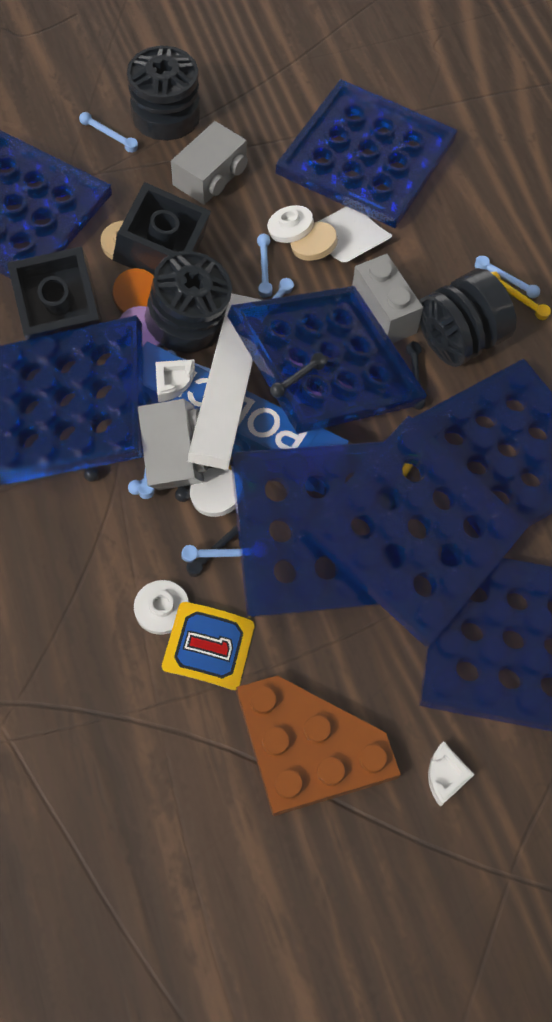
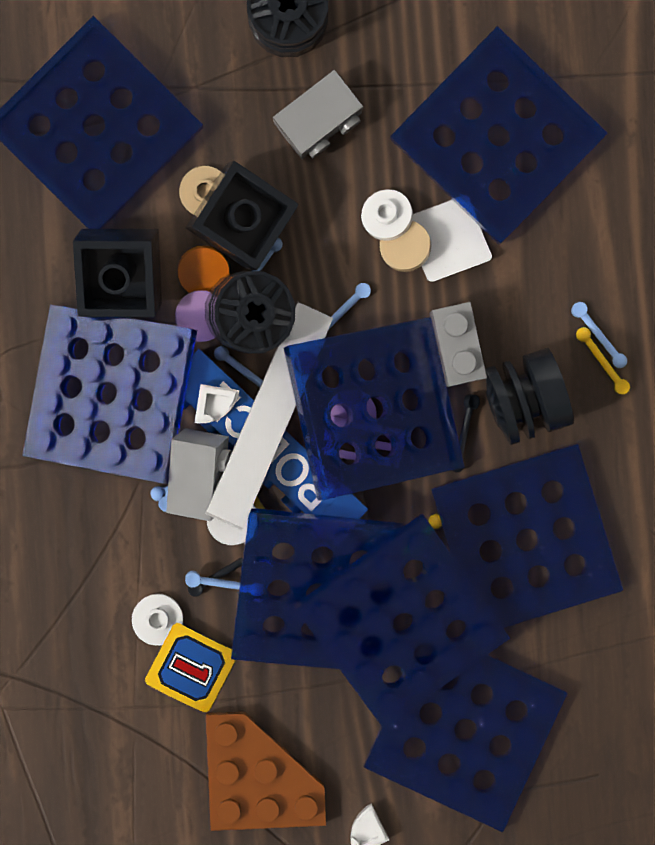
camera: 15 degrees right, 25 degrees up
(131, 144) = (238, 56): light blue hinge -> none
(265, 288) = (353, 227): light blue hinge -> none
(317, 362) = (359, 424): black hinge -> none

